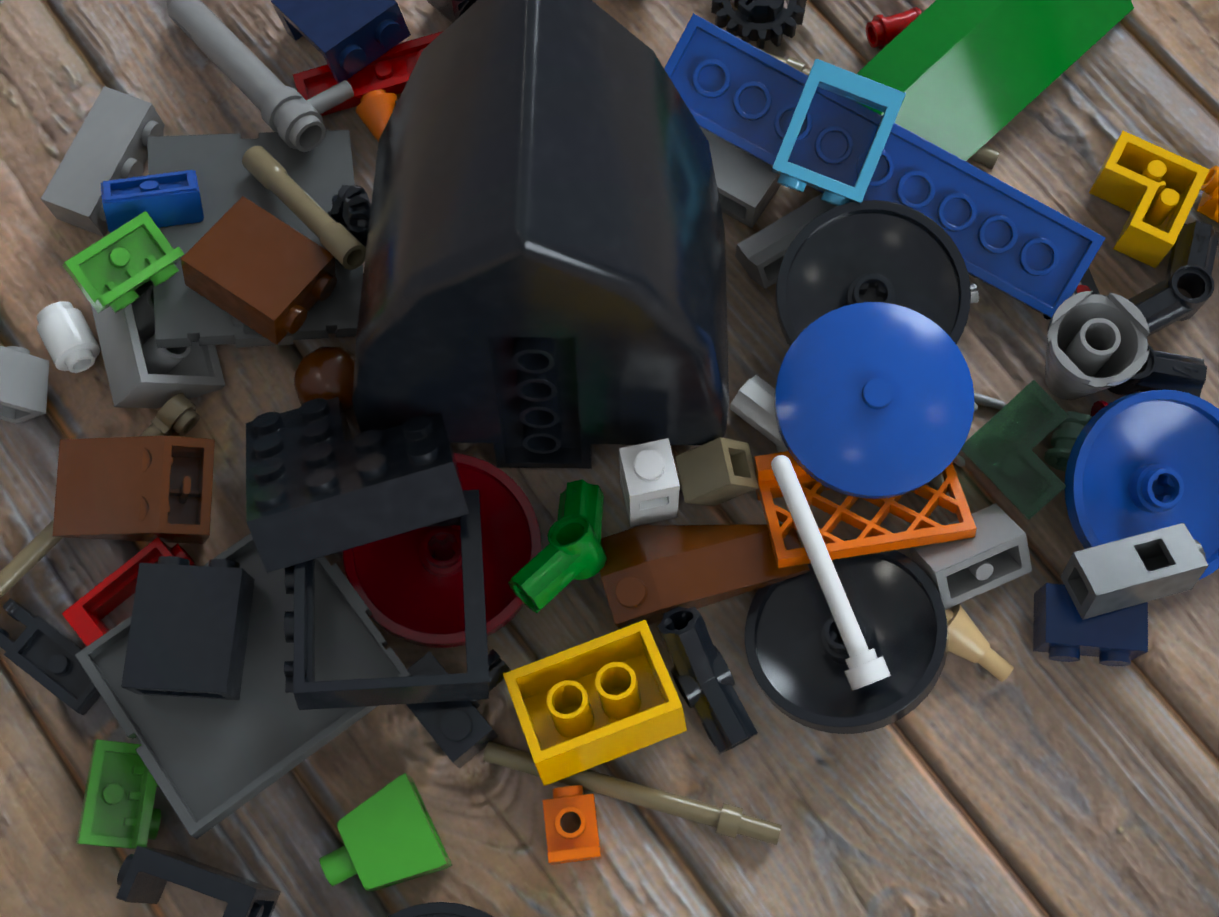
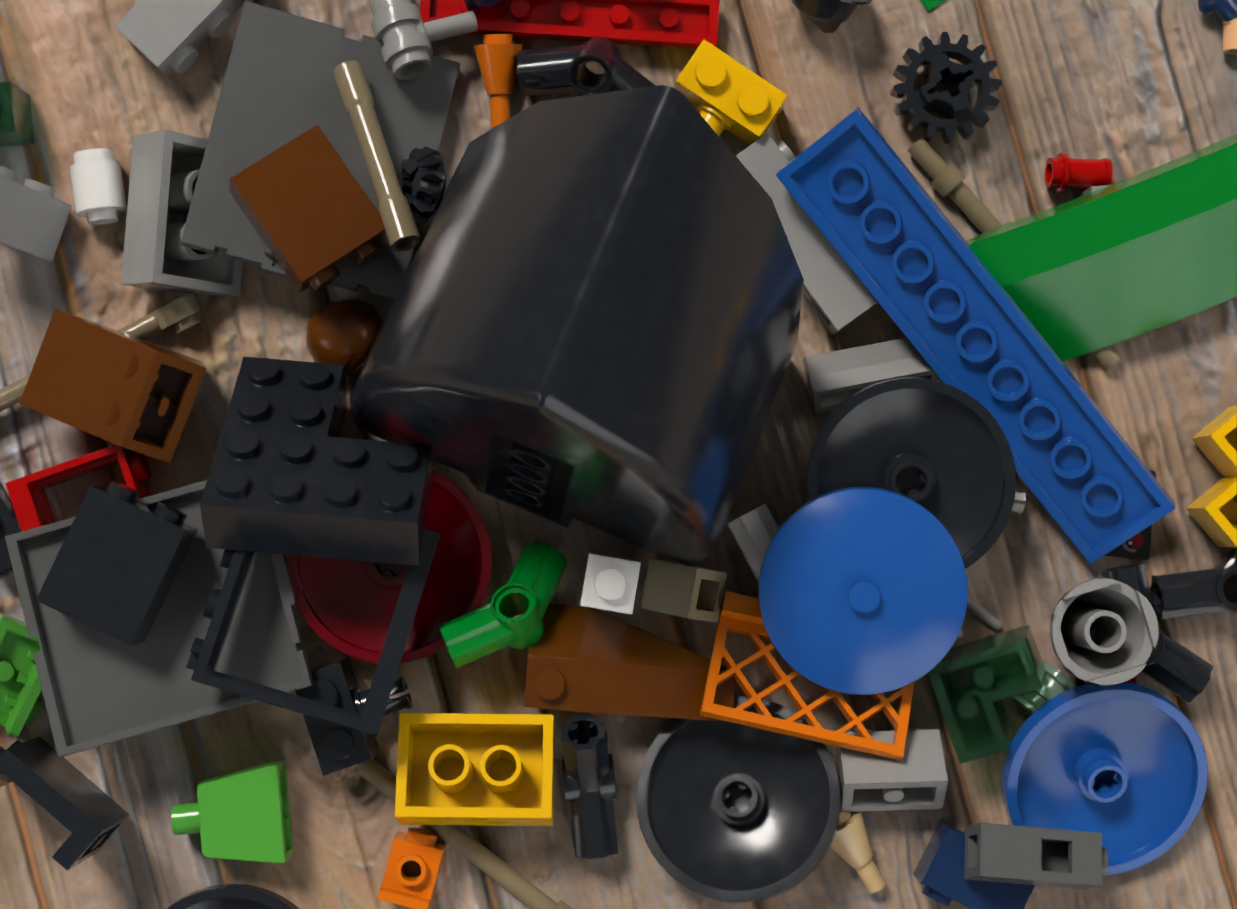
camera: 20 degrees right, 15 degrees up
(123, 262) = (174, 154): bright green bracket -> none
(166, 197) = (225, 82): blue slope -> none
(854, 88) = (982, 262): medium azure window -> none
(863, 663) = (738, 844): white piece -> none

